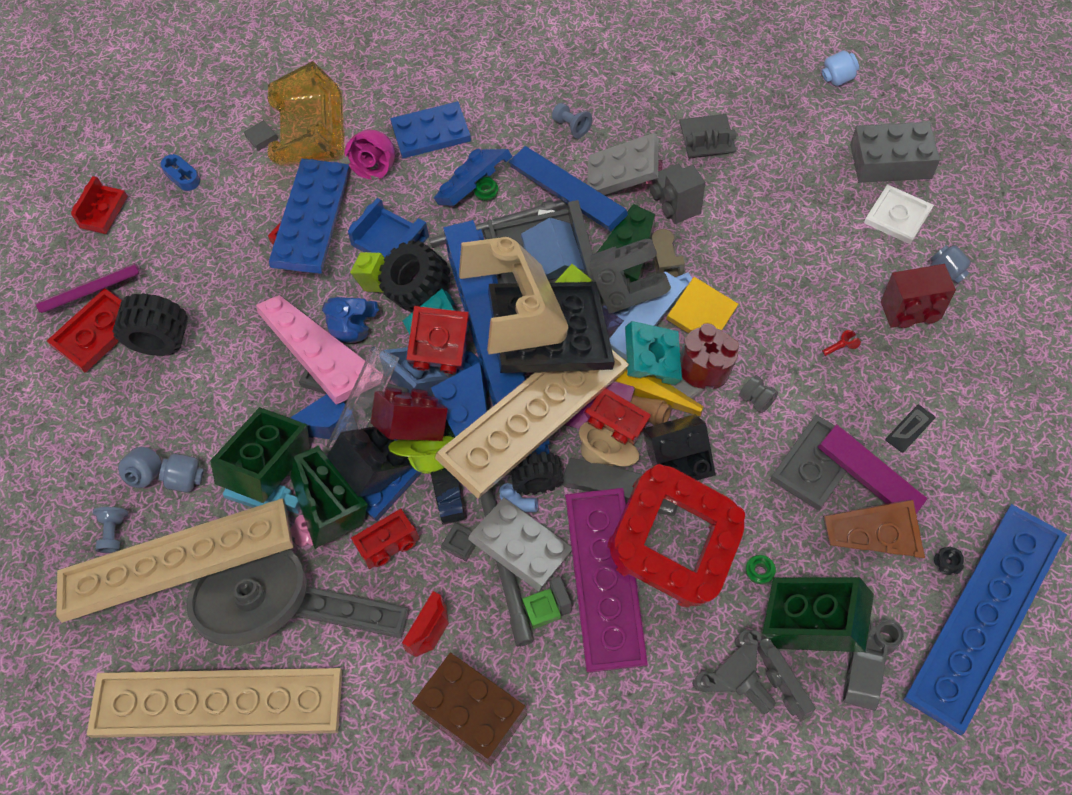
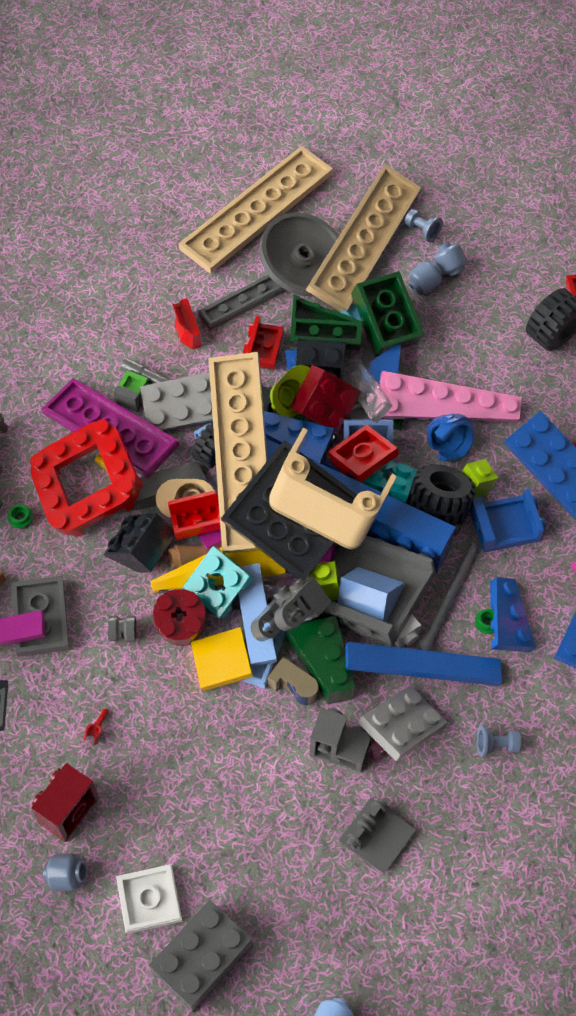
camera: 130 degrees right, 0 degrees up
(470, 709) = (117, 306): reddish brown brick -> none

